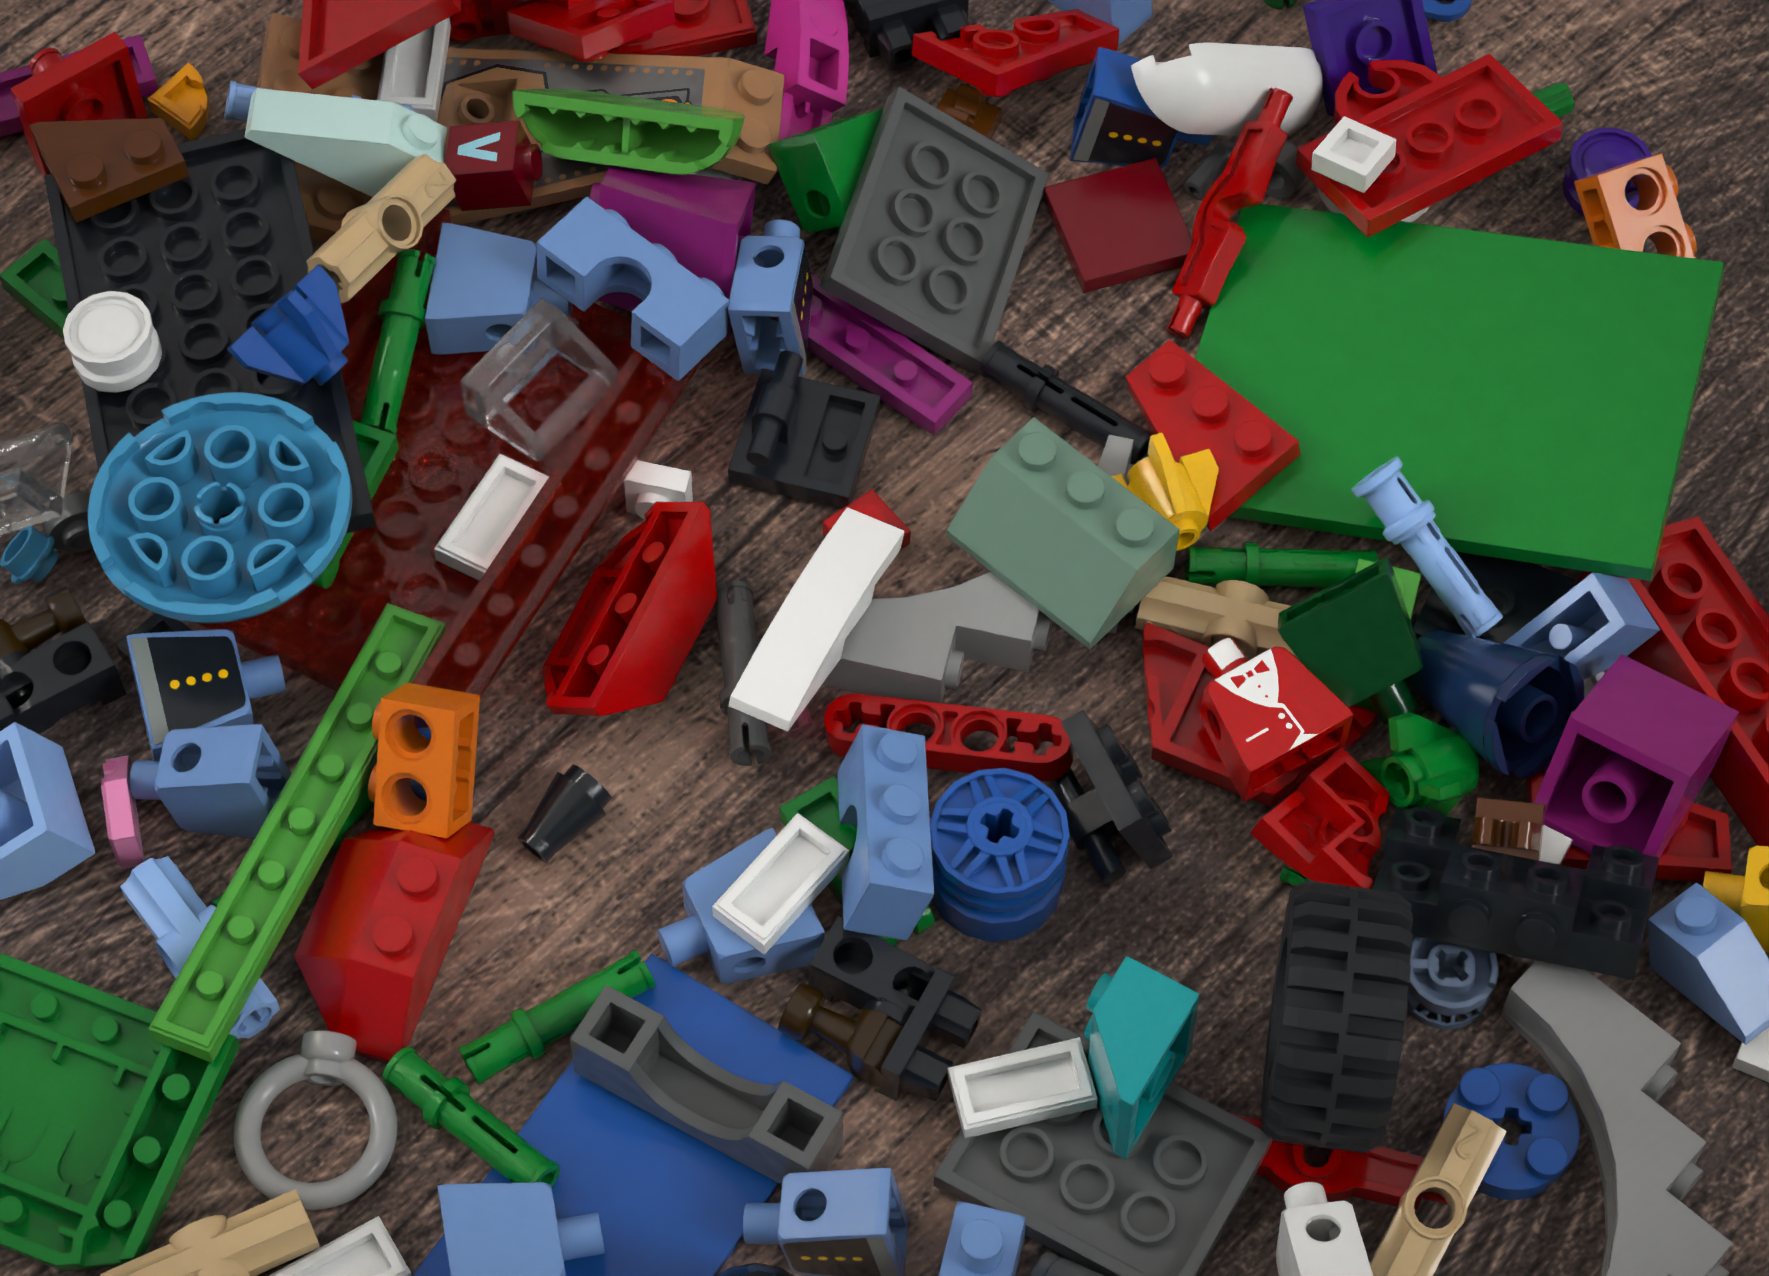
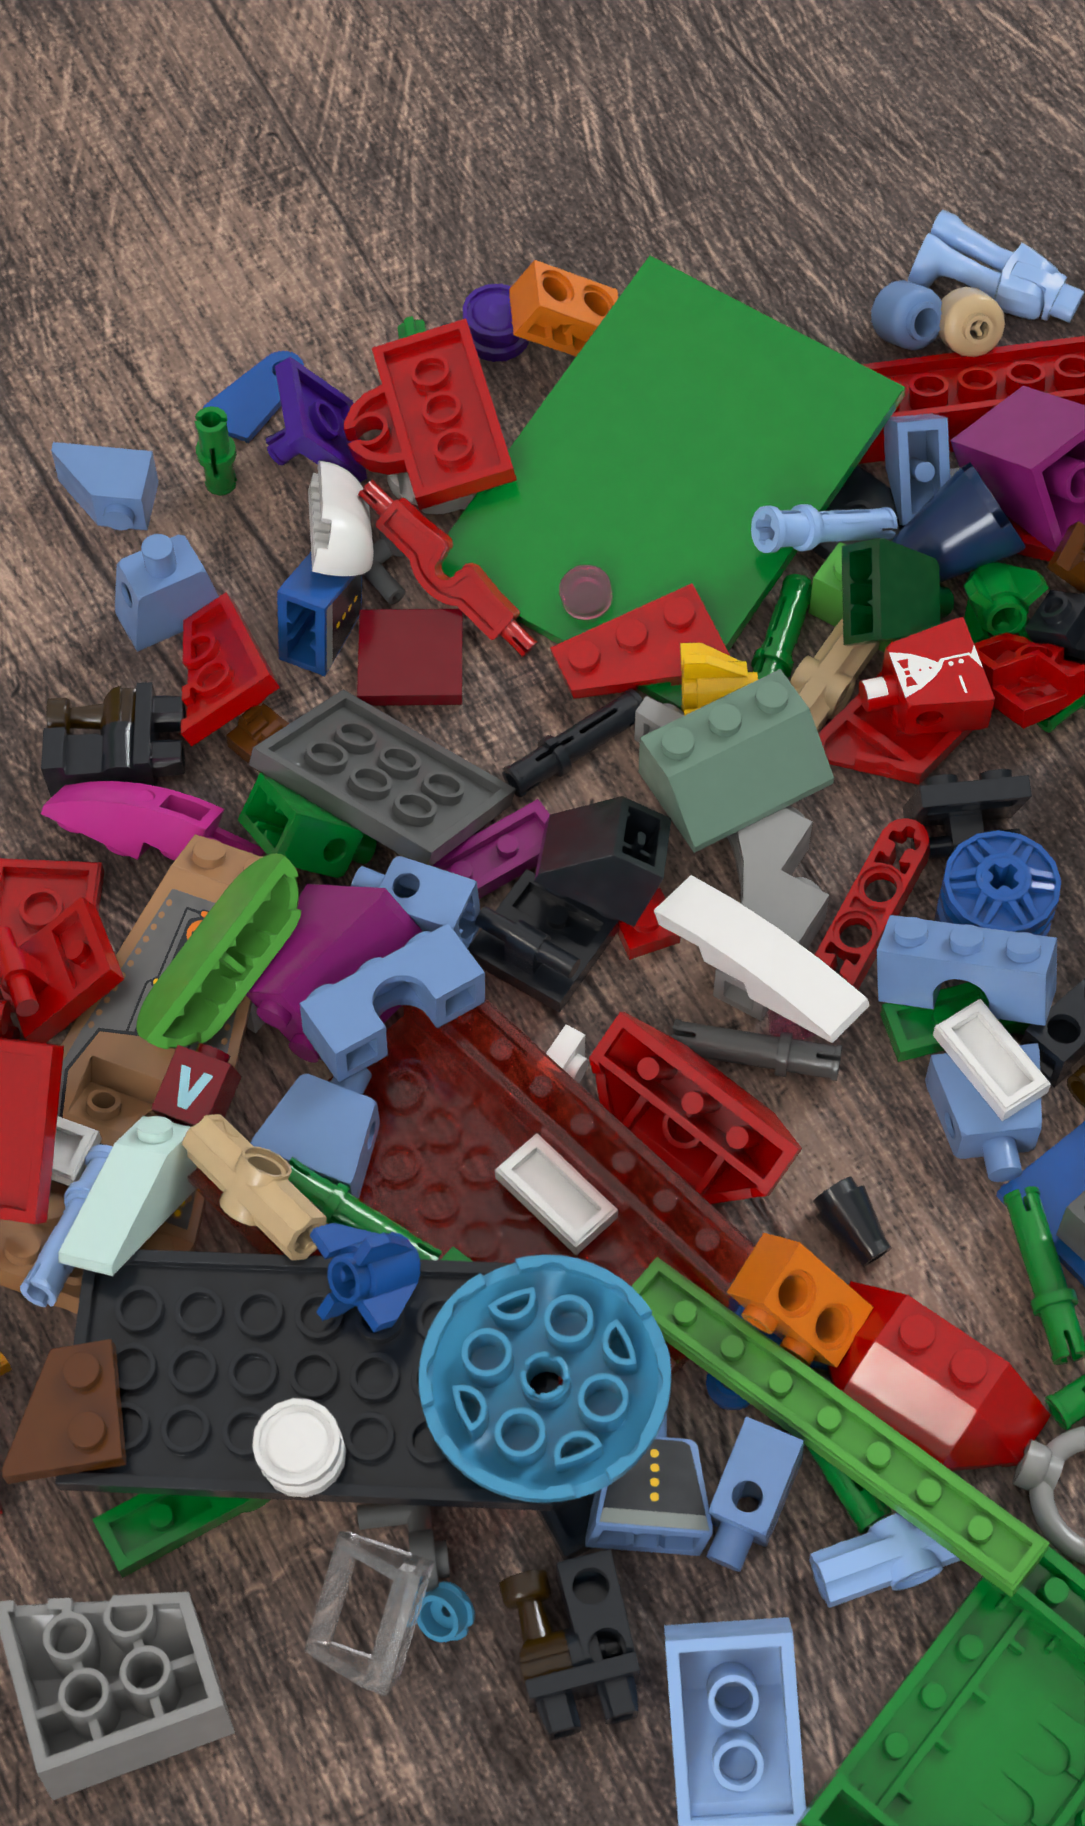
camera: 70 degrees left, 0 degrees up
(121, 813) = (740, 1586): bright pink tile -> none
(517, 361) = (432, 1165): clear tile -> none
(900, 448) = (605, 856): none -> black slope
(1255, 351) = (586, 592): none -> clear pink tile
(1353, 154) = (453, 454): white plate -> none

